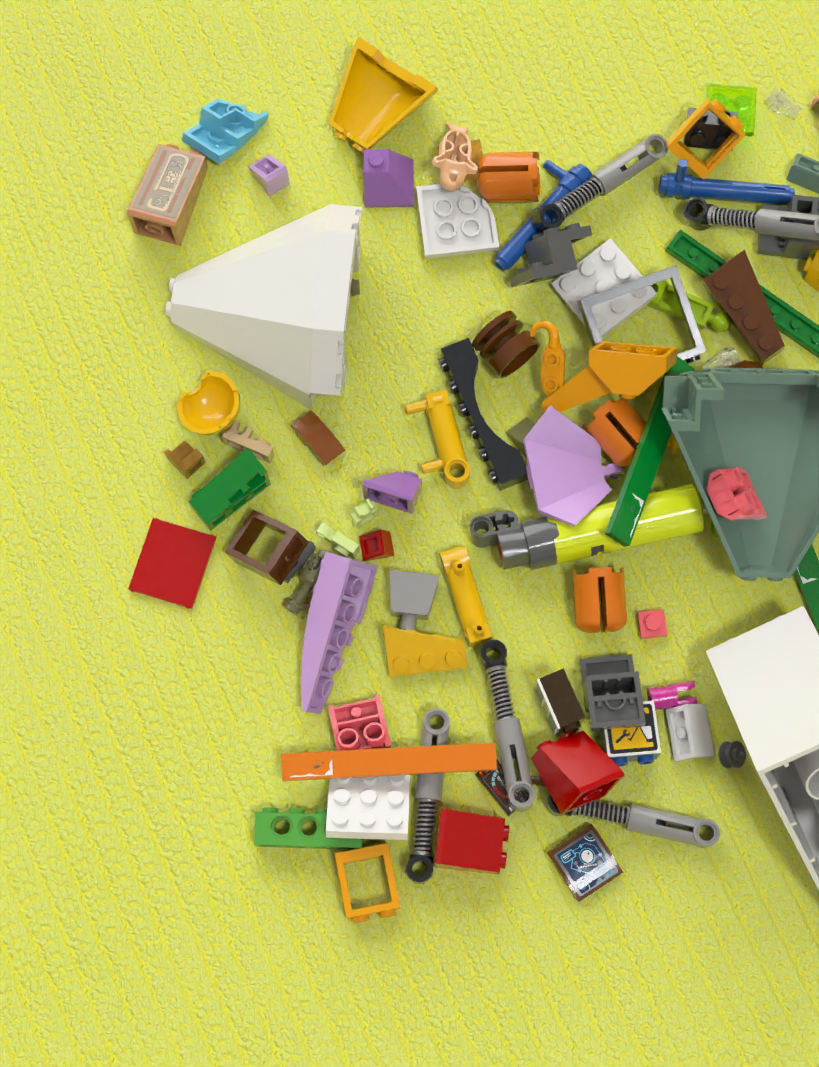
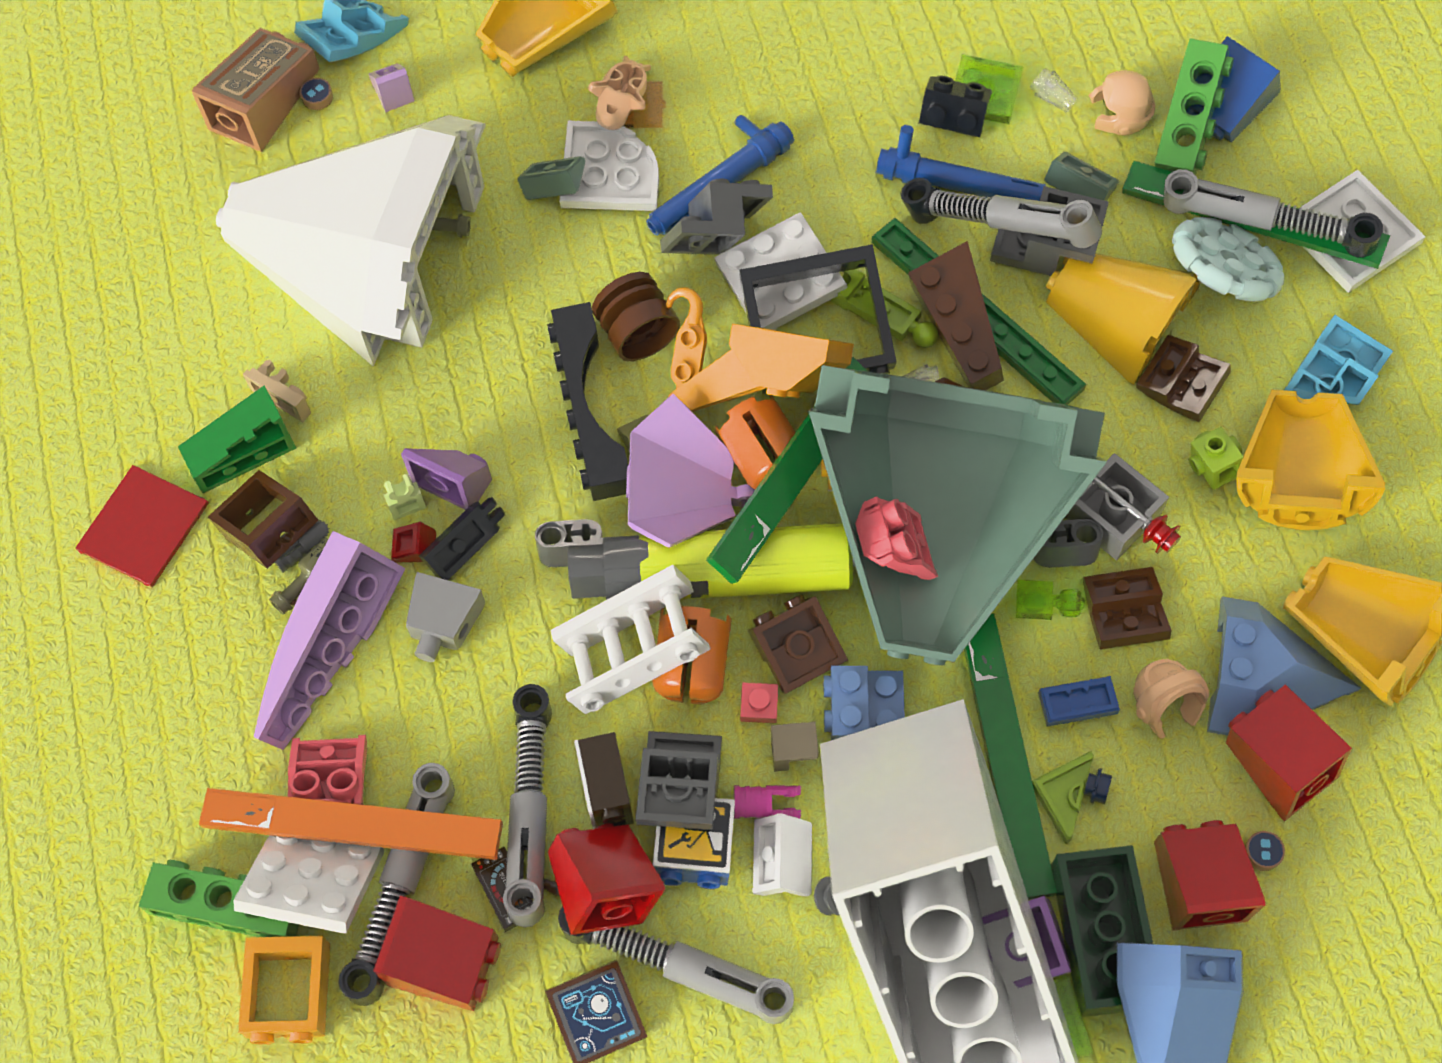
camera: 10 degrees right, 10 degrees down
(185, 459) = (194, 400): pearl gold panel -> none
(211, 406) = (241, 338): yellow cylinder -> none
(212, 190) = (316, 93): none -> tile
(318, 437) = (369, 397): dark orange slope -> none
(342, 544) = (365, 531): yellowish green plate -> none
(388, 179) = (534, 108): medium lavender slope -> none
(414, 537) = (463, 538): none -> black hinge
(415, 237) = (552, 178): none -> sand green slope
(422, 653) = (435, 689): yellow wing -> none
(446, 438) = (535, 423): yellow piece -> none
(466, 595) = (513, 623): yellow piece -> none
(509, 177) = (687, 124): orange cylinder -> none
(538, 582) = (616, 614): none -> white fence
(601, 182) = (807, 142): piece -> none
(671, 576) = (797, 642): none -> reddish brown plate
(683, 652) = (793, 743): none -> dark tan panel
(700, 167) = (921, 133): light orange window -> none
(726, 613) = (861, 699): none -> medium blue plate

